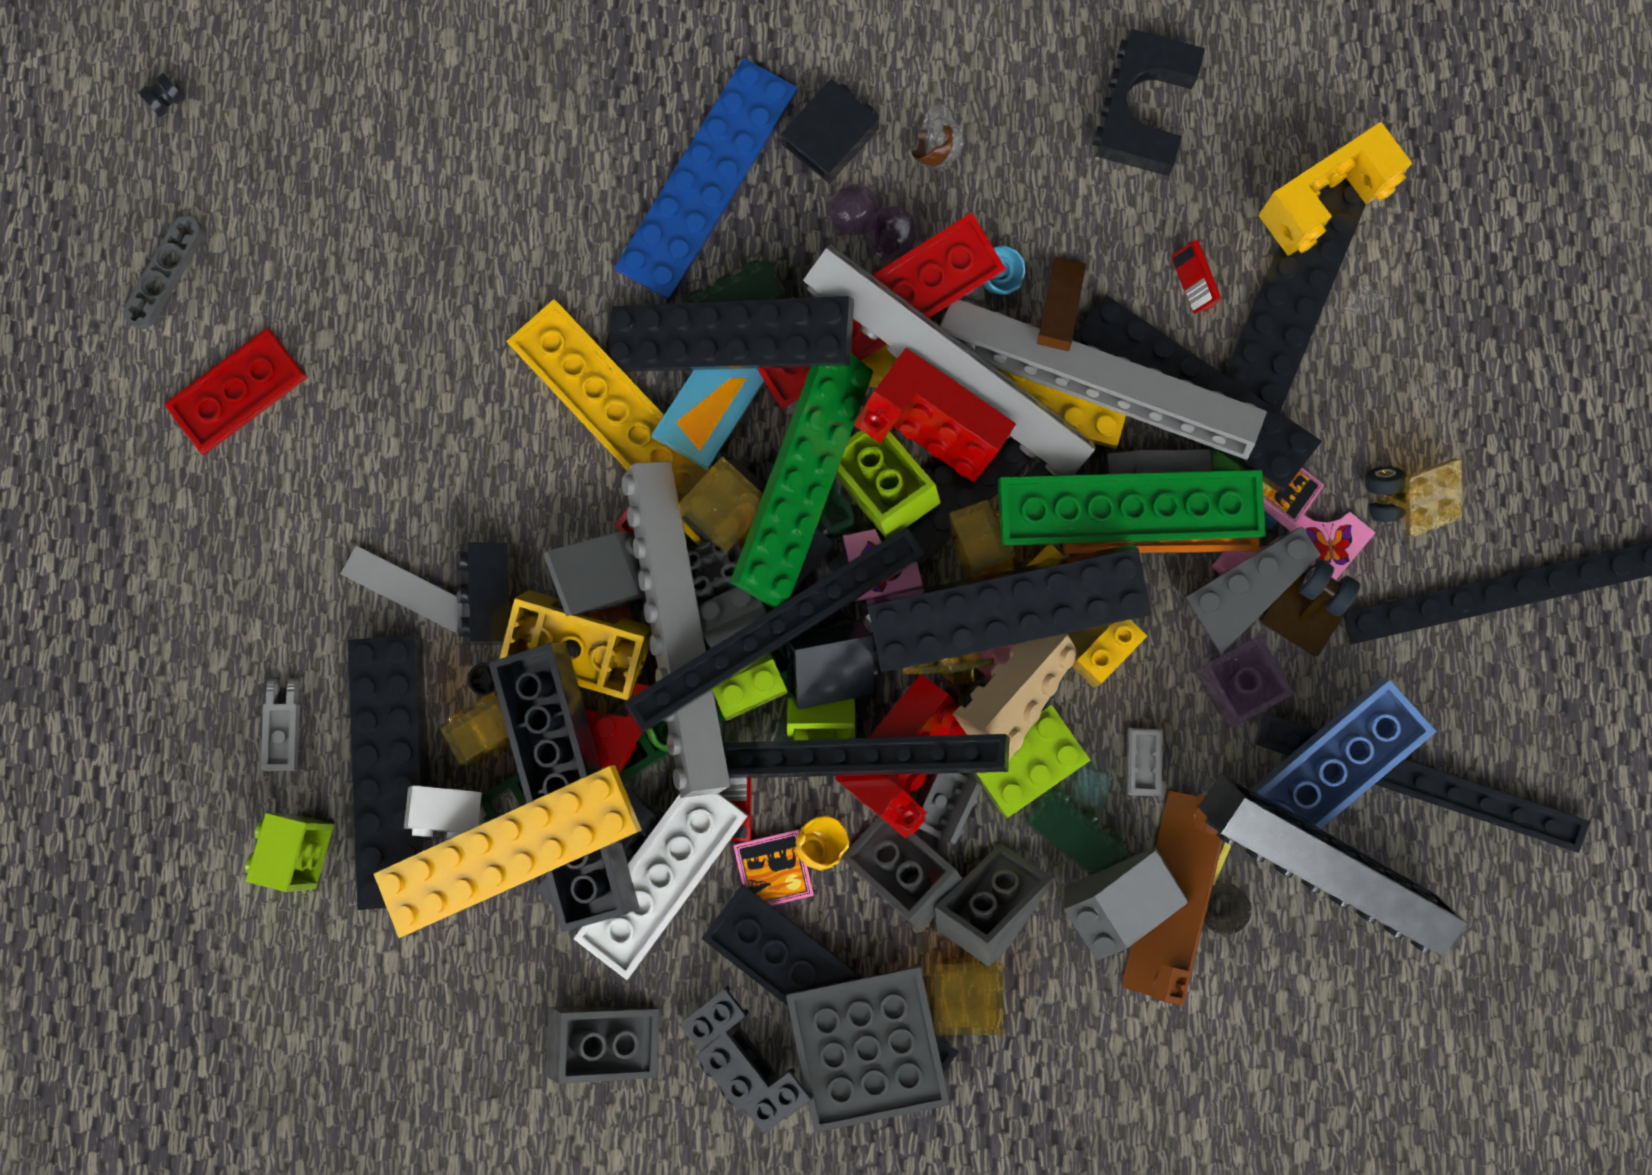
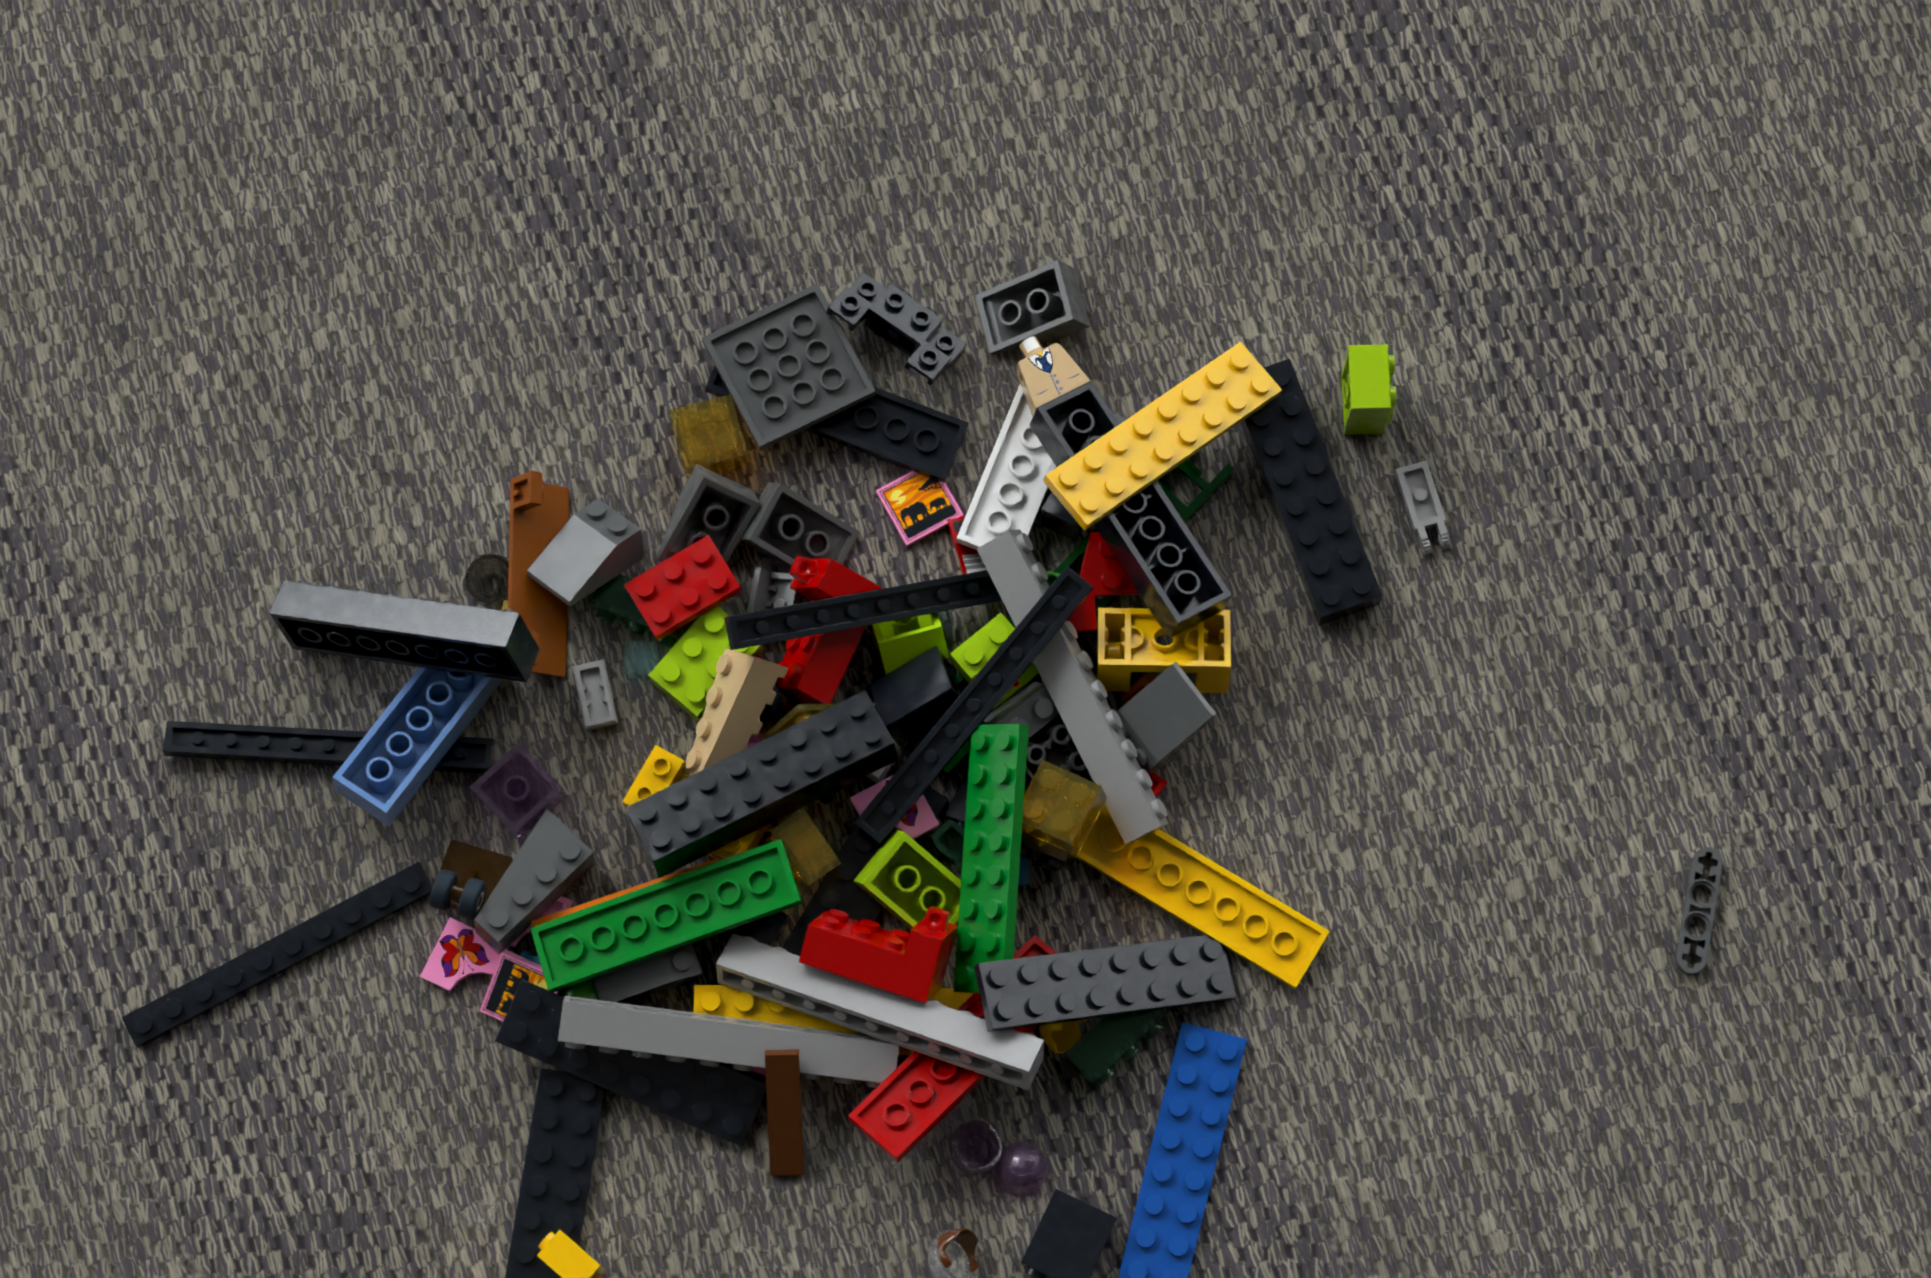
camera: 165 degrees right, 5 degrees down
(169, 93) = (1768, 1092): black wheel -> none
(235, 391) = (1583, 812): red tile -> none
(403, 588) = (1349, 666): light grey tile -> none
(441, 810) = (1238, 462): white brick -> none
(477, 733) = (1231, 544): clear yellow brick -> none
(481, 679) = (1241, 594): black wheel -> none
(483, 593) = (1270, 677): black brick -> none
(606, 961) = (1047, 373): none -> tan torso
(707, 412) = (1109, 905): medium azure tile -> none
(812, 845) = (881, 529): yellow hair -> none
(1014, 268) = (858, 1152): medium azure hair -> none
(1034, 839) = (683, 587): none -> red plate
(1196, 277) = (655, 1189): slope -> none
(1429, 498) = (381, 1015): clear yellow plate -> none

